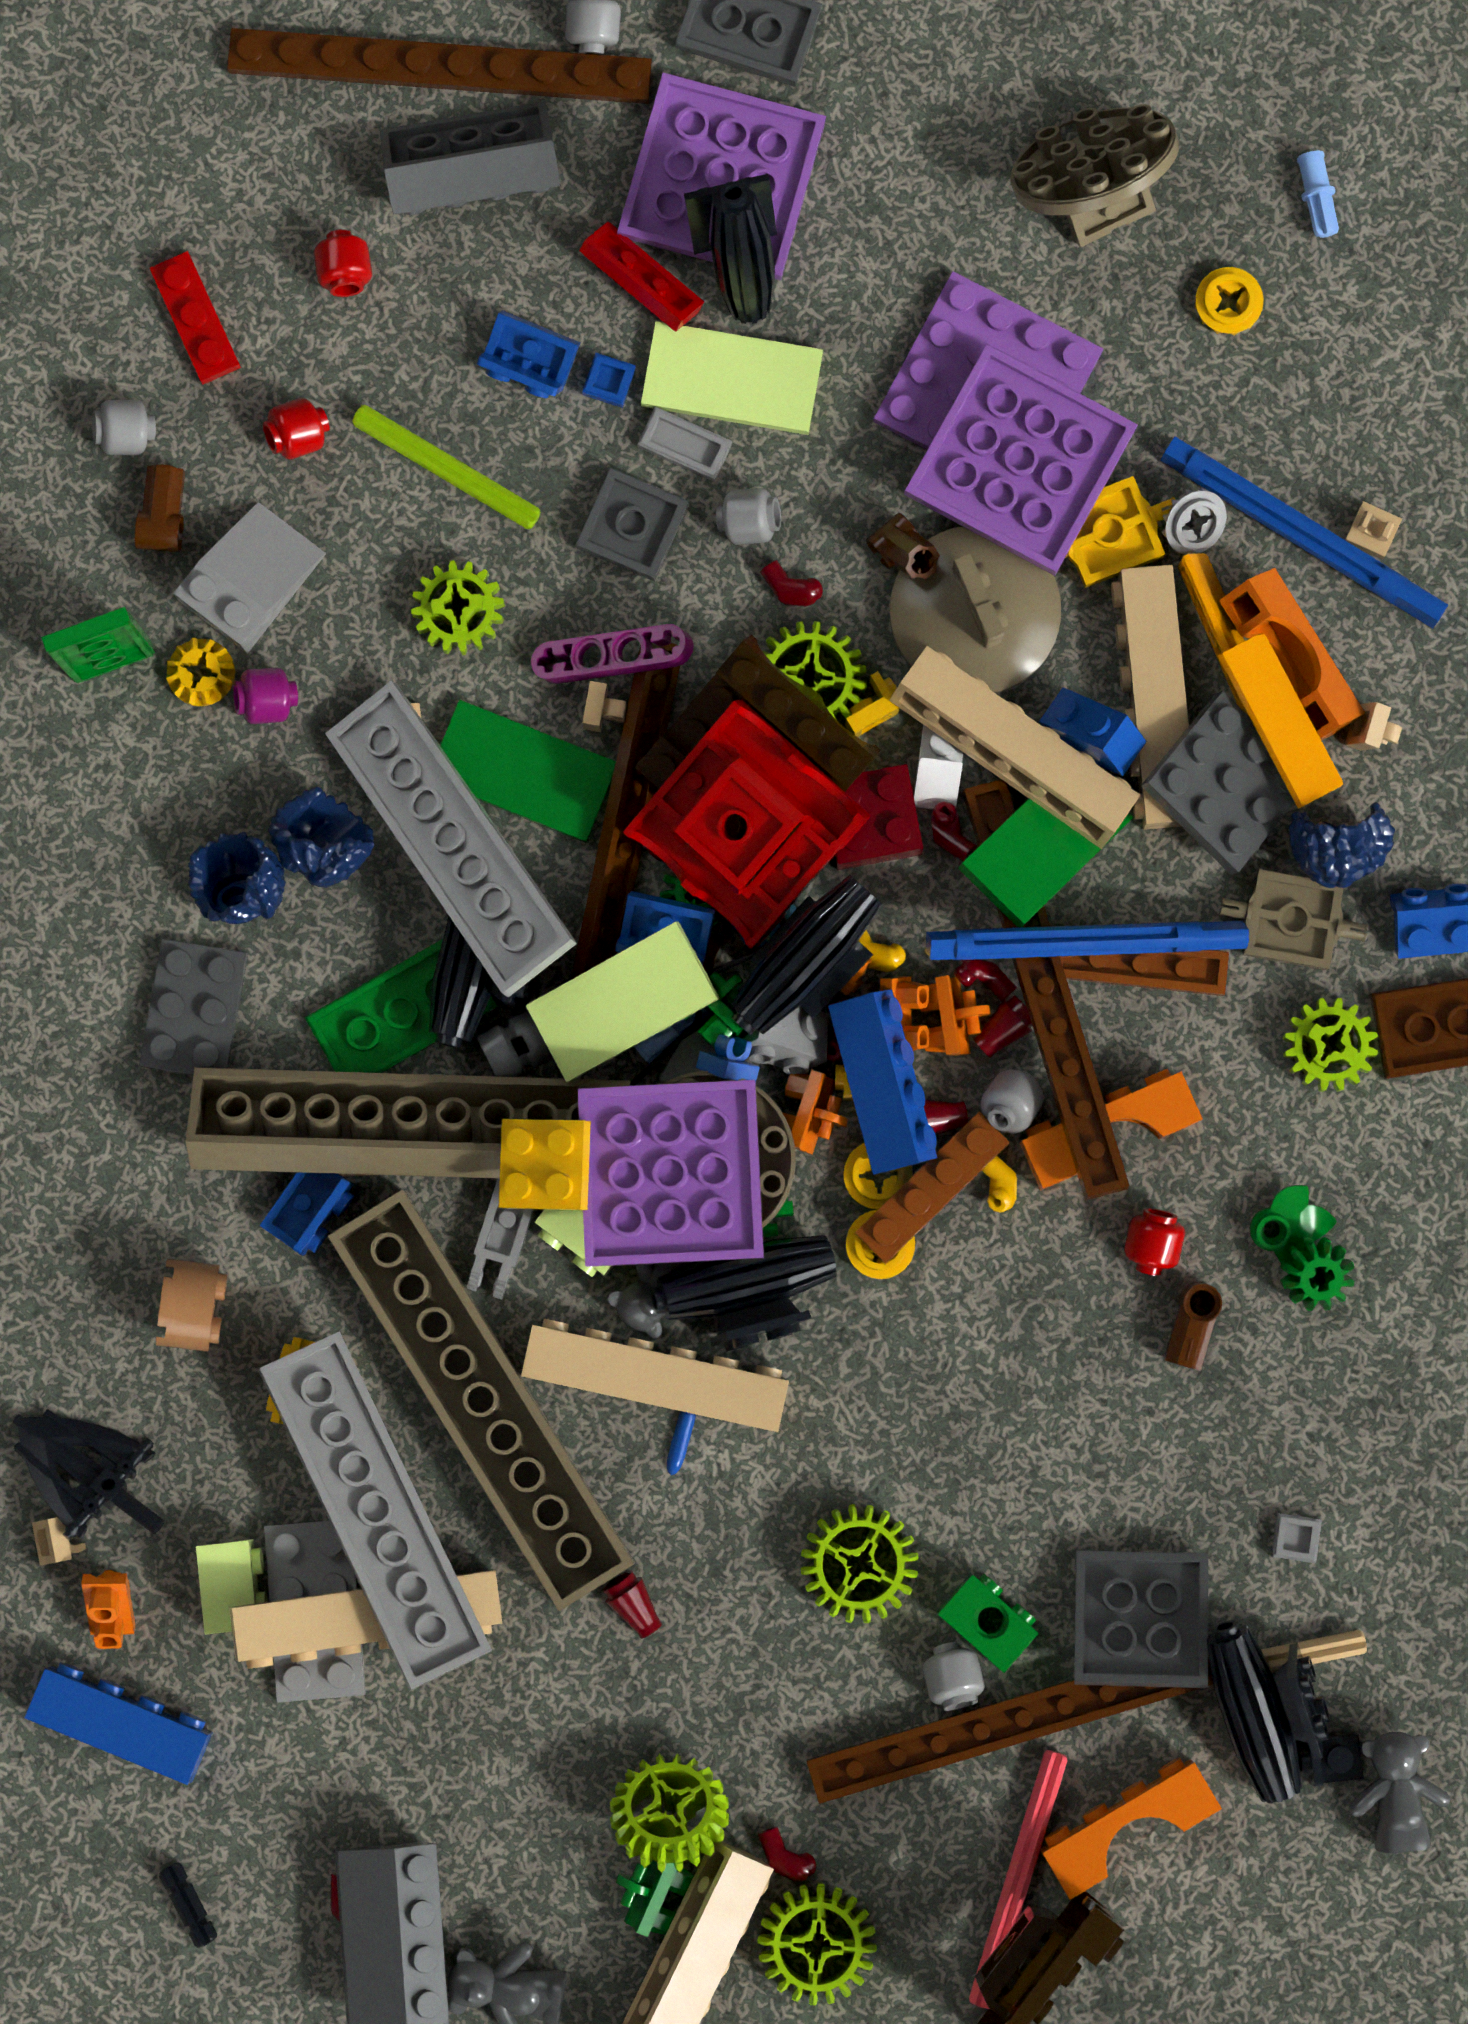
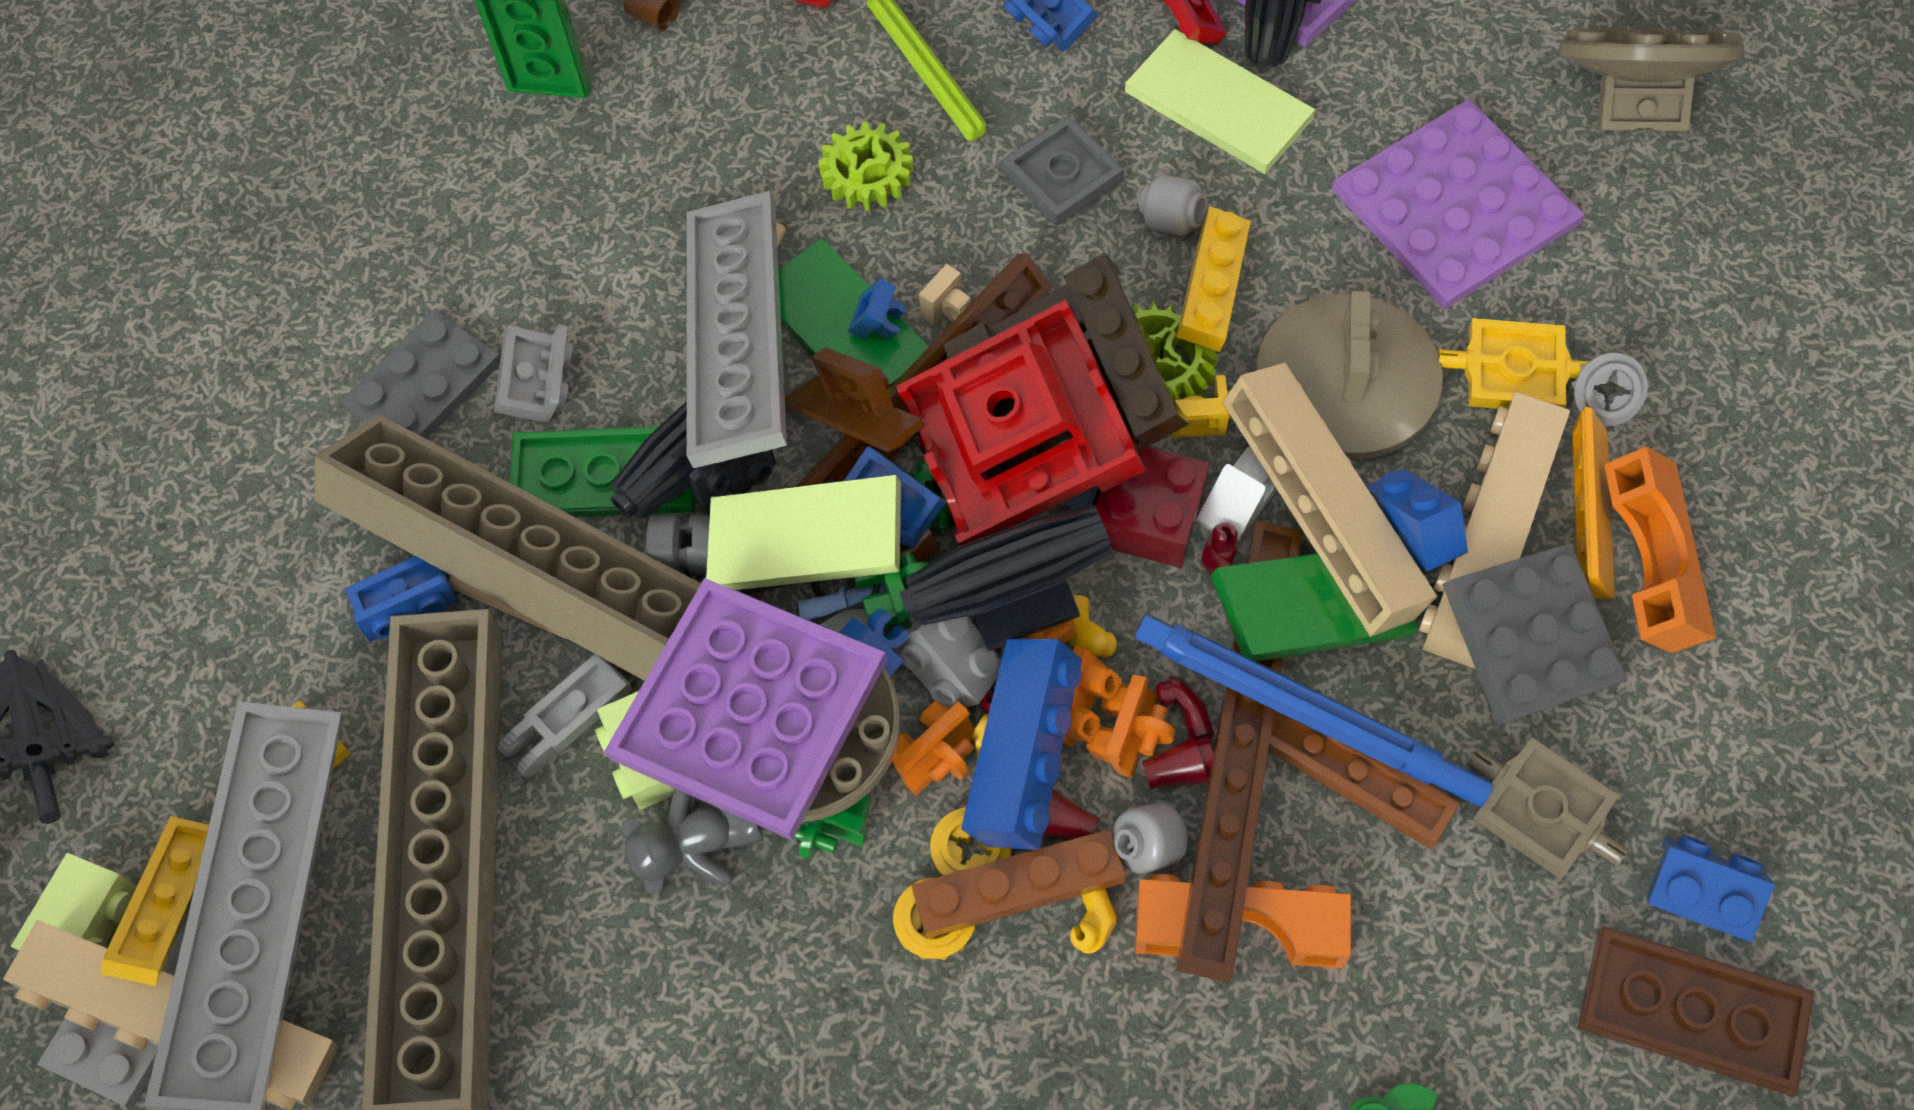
camera: 30 degrees right, 20 degrees down
(189, 1305) = (227, 622): medium nougat brick -> none
(209, 689) = (611, 137): yellow gear -> none
(236, 879) = (528, 283): dark blue hair -> none
(249, 576) = (699, 68): light grey slope -> none
(264, 695) = (653, 158): magenta head -> none
(290, 956) = (532, 373): none -> light grey bracket
(302, 1541) = (158, 905): none -> yellow plate
(320, 838) = (621, 283): dark blue hair -> none
(544, 1164) = (627, 634): yellow plate -> none
(551, 756) = (873, 310): none -> blue tile
(591, 860) = (854, 401): none -> reddish brown bracket
(609, 380) = (1107, 58): blue tile -> none
(611, 649) = (1028, 257): magenta beam -> none
(655, 1377) = (625, 933): tan brick -> none
(680, 1442) = (628, 1000): blue piece -> none
(684, 444) = (1147, 133): light grey tile -> none
(748, 1292) = (765, 884): black plate -> none
(791, 590) = (1172, 275): dark red arm -> none
(822, 577) = (1214, 279): none -> yellow plate
(904, 548) = (1305, 285): reddish brown piece -> none
(1020, 459) = (1460, 259): medium lavender plate -> none
(1154, 1241) = (1232, 1067): red head -> none
(1230, 281) = (1736, 215): yellow gear -> none
(1280, 720) = (1622, 598): light orange slope -> none
(1304, 532) = (1732, 466): blue piece -> none
(1312, 1034) = (1541, 972): lime gear -> none
(1318, 193) = (1858, 177): light blue axle -> none
(1341, 853) = (1634, 750): dark blue hair -> none
(1372, 728) = (1718, 659): tan tile -> none
(1373, 530) = (1793, 482): tan tile -> none

